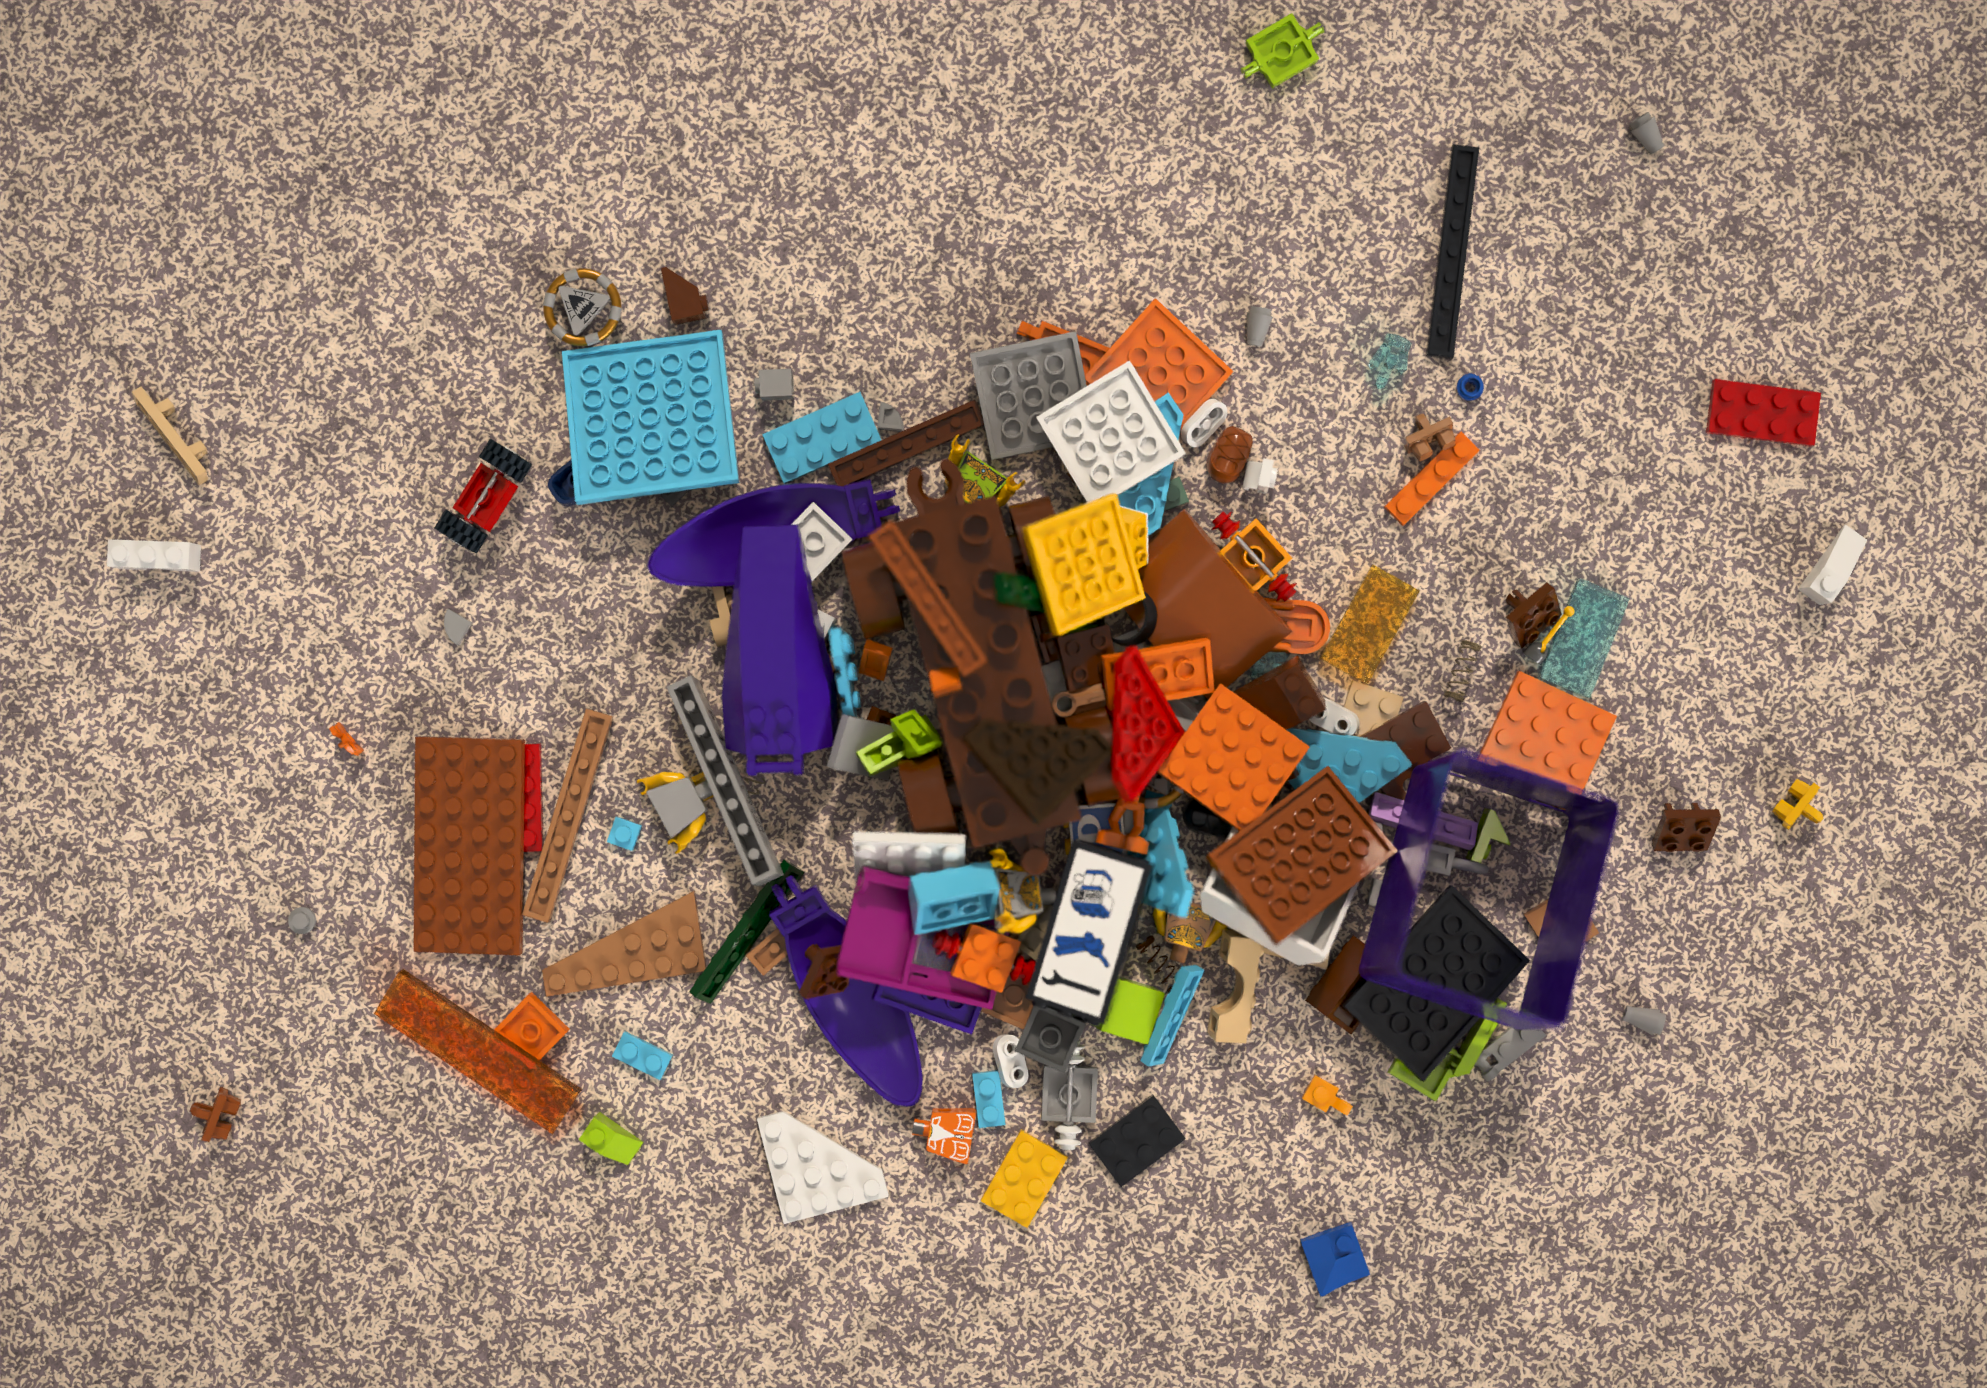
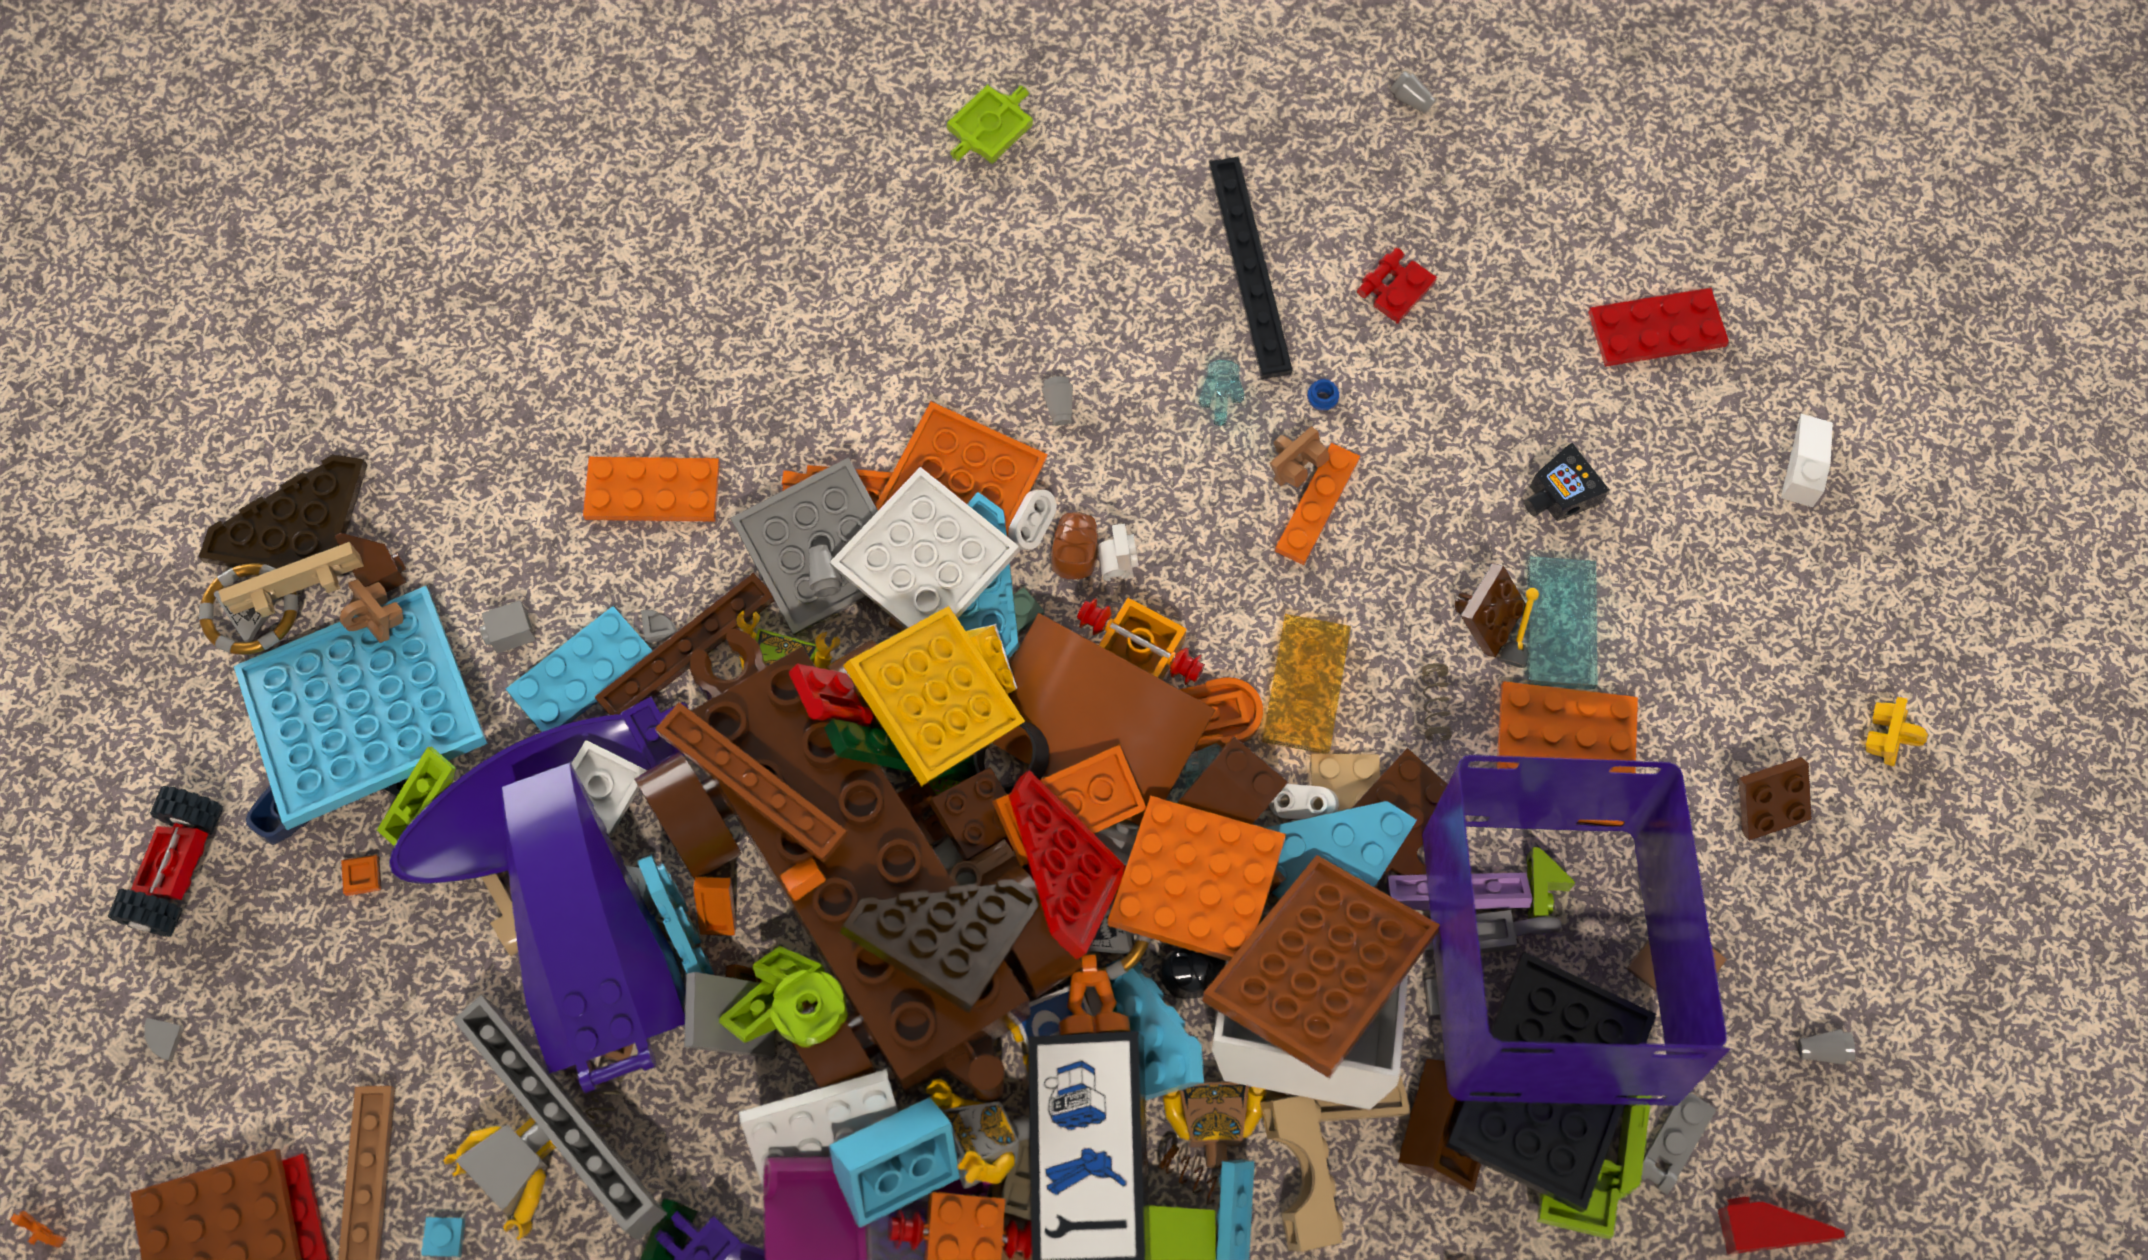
camera: 15 degrees left, 20 degrees down
(597, 300) = (319, 568): none -> tan hinge
(622, 548) = (361, 875): none -> orange tile
(630, 242) = (291, 521): none -> dark brown plate
(671, 342) = (367, 606): none -> medium nougat hips
(677, 511) = (424, 784): none -> lime slope
(909, 766) = (812, 1027): none -> lime plate
(915, 299) = (651, 489): none -> orange plate
(1005, 539) = (829, 695): none -> red plate
(1027, 424) = (824, 577): none -> light grey cone
(1541, 1125) = (1767, 1226): none -> red slope
(1571, 314) = (1405, 290): none -> red plate
(1631, 528) = (1566, 486): none -> black torso

